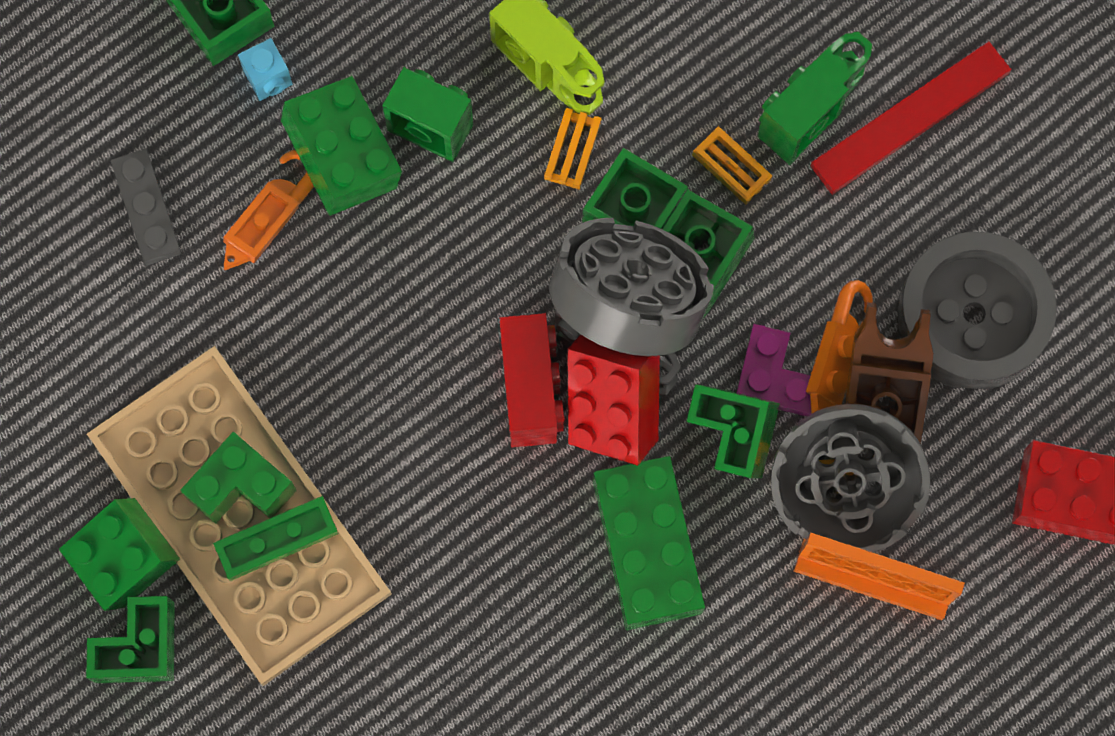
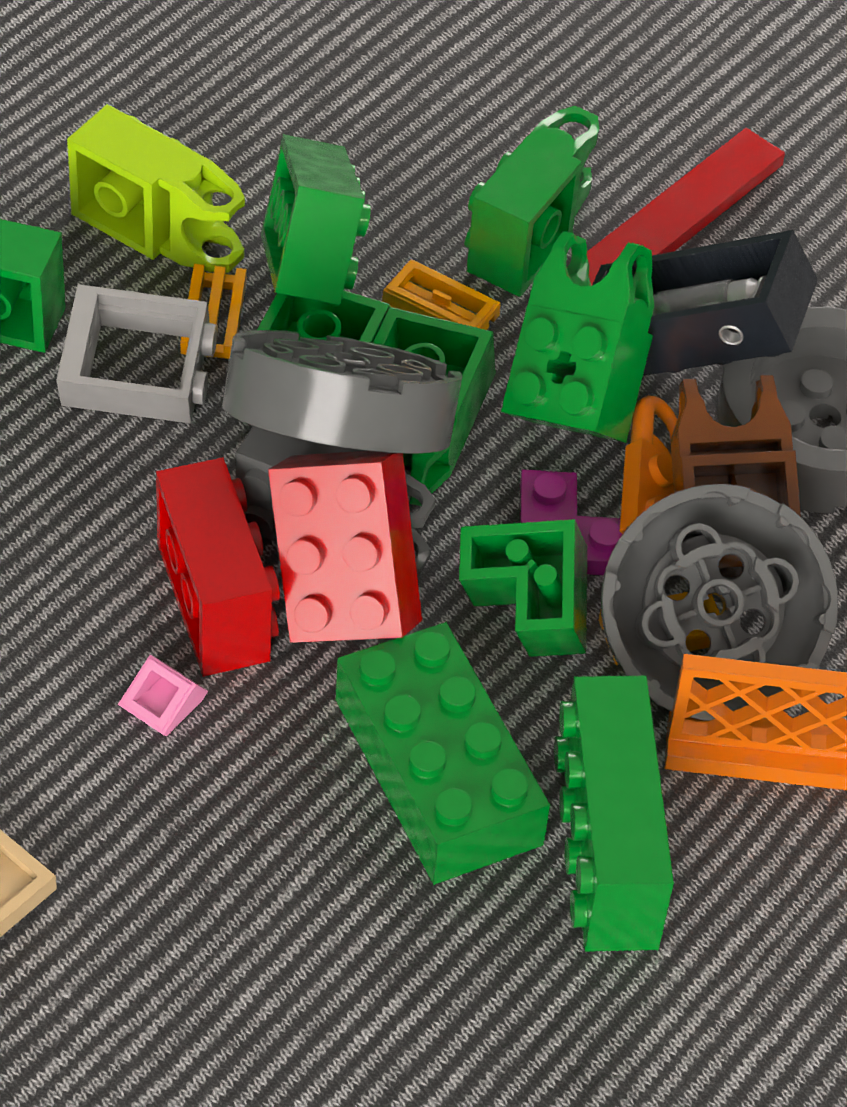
camera: 15 degrees left, 25 degrees down
(474, 177) = (139, 312): none -> light grey window
(482, 460) = (161, 696): none -> bright pink slope
(647, 113) = (313, 220): none -> green brick
(746, 617) = (613, 814): none -> green brick
(810, 251) = (583, 343): none -> green brick
(899, 229) = (726, 301): none -> black piece

